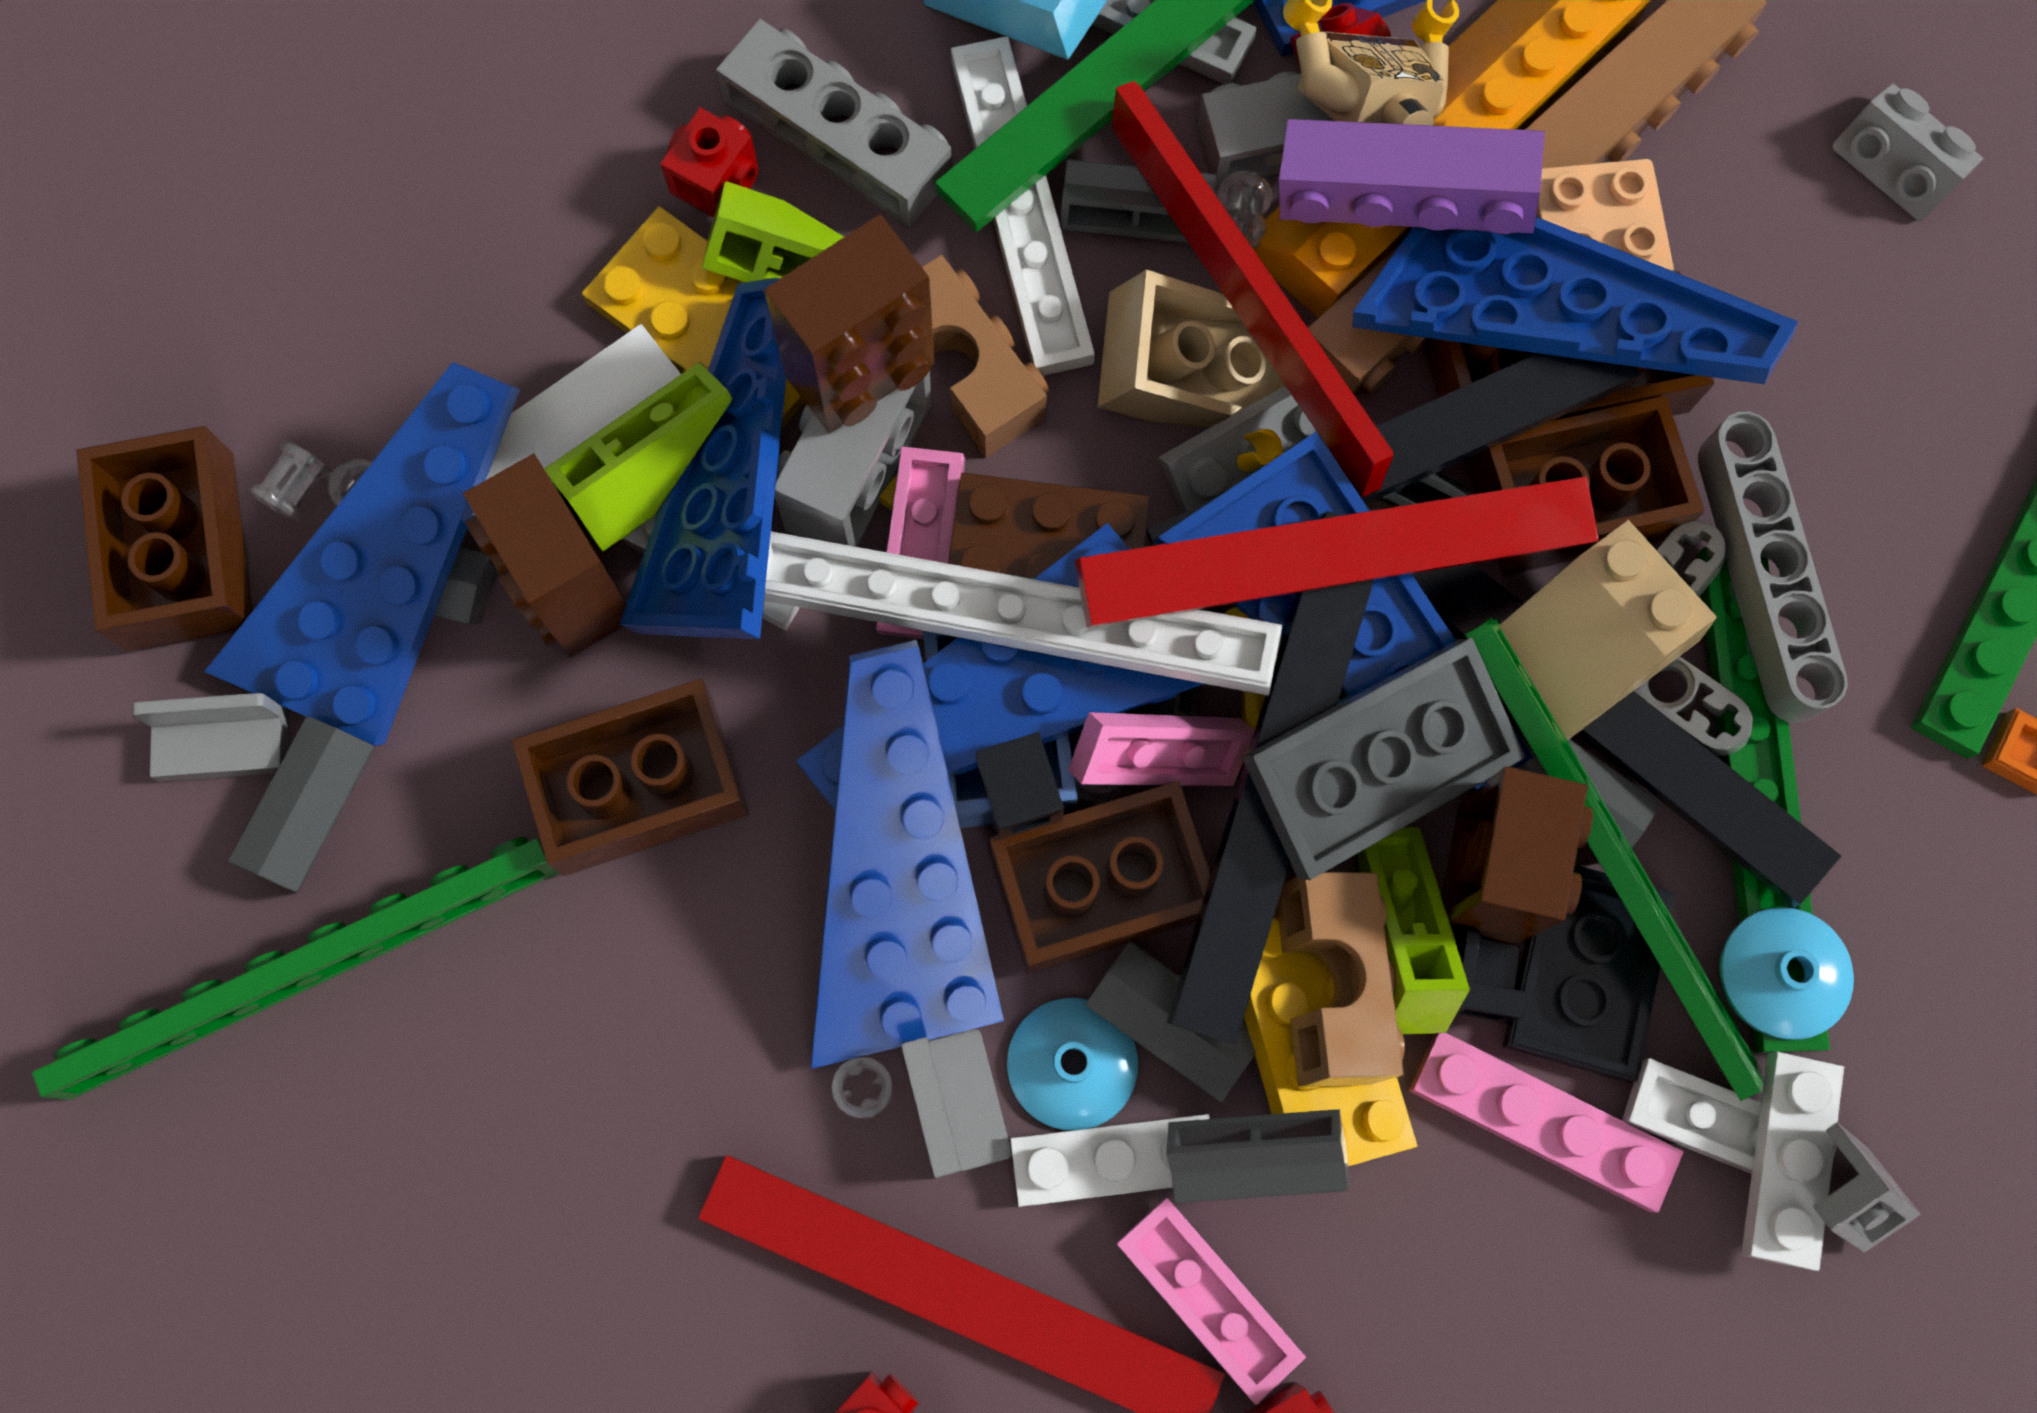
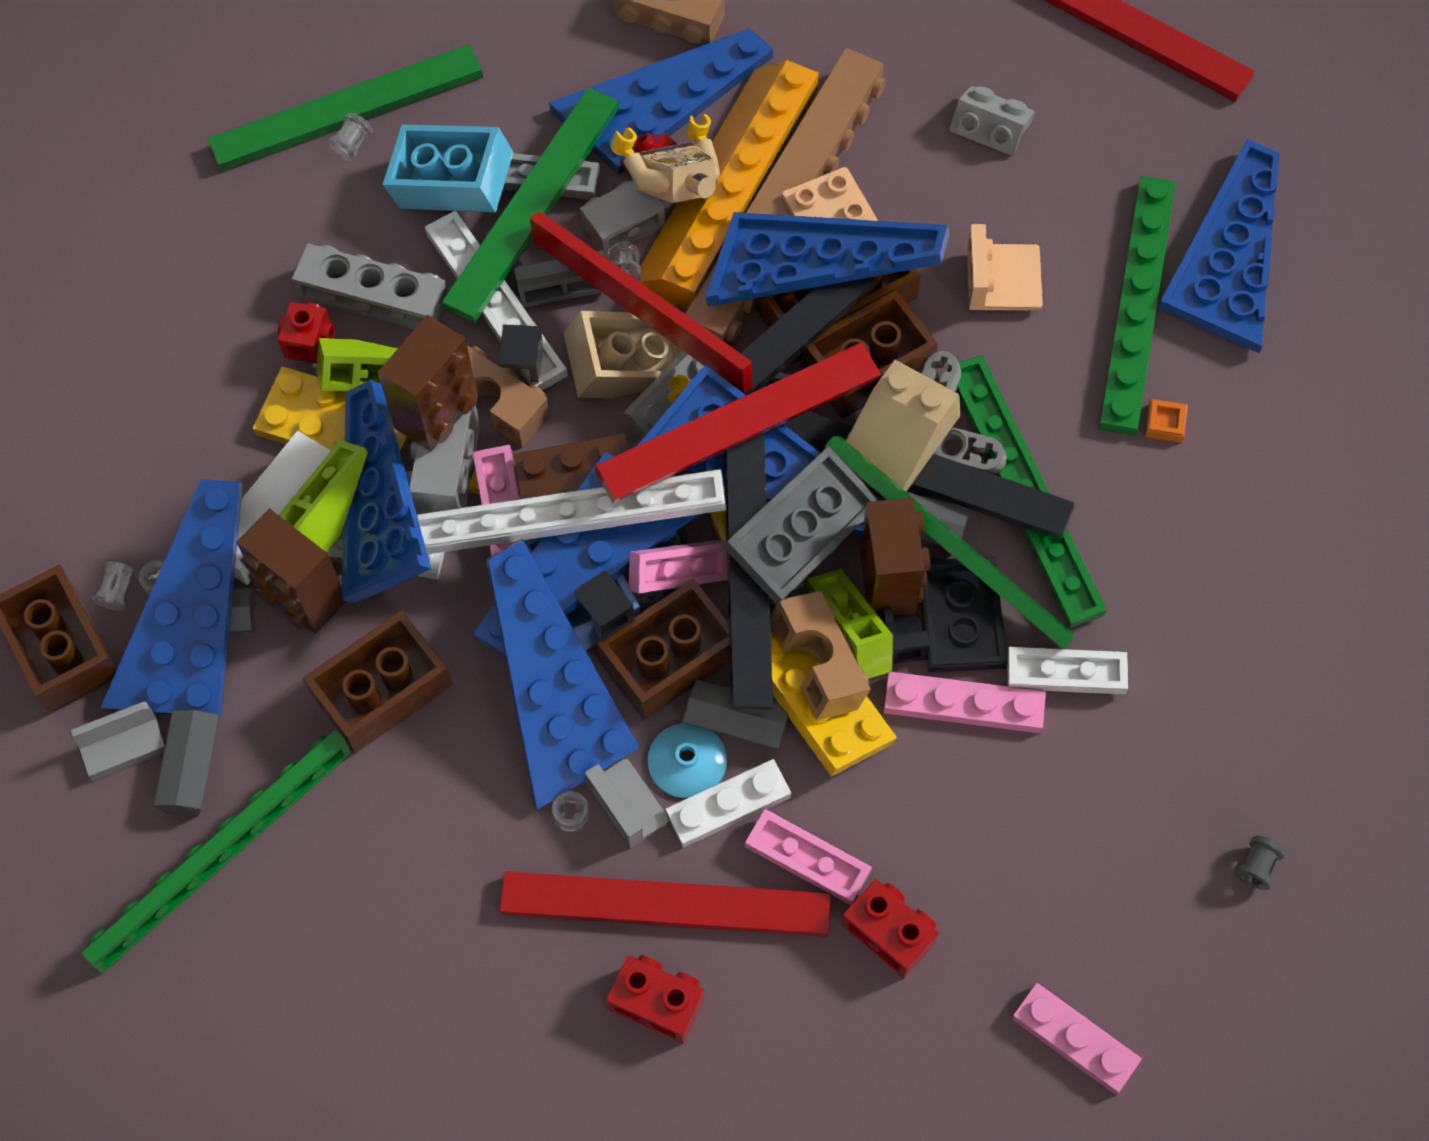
camera: 15 degrees left, 10 degrees down
(1033, 302) = (522, 349): none -> black panel
(1258, 1156) = (806, 762): dark grey piece -> none
(1411, 175) = (711, 214): medium lavender brick -> none
(1758, 981) = (1067, 592): medium azure dish -> none
(1759, 594) = (986, 379): light grey beam -> none
(1792, 1161) = (1104, 673): white plate -> none
(1842, 417) = (1002, 274): none -> light nougat bracket
(1869, 1204) = (1148, 679): light grey panel -> none

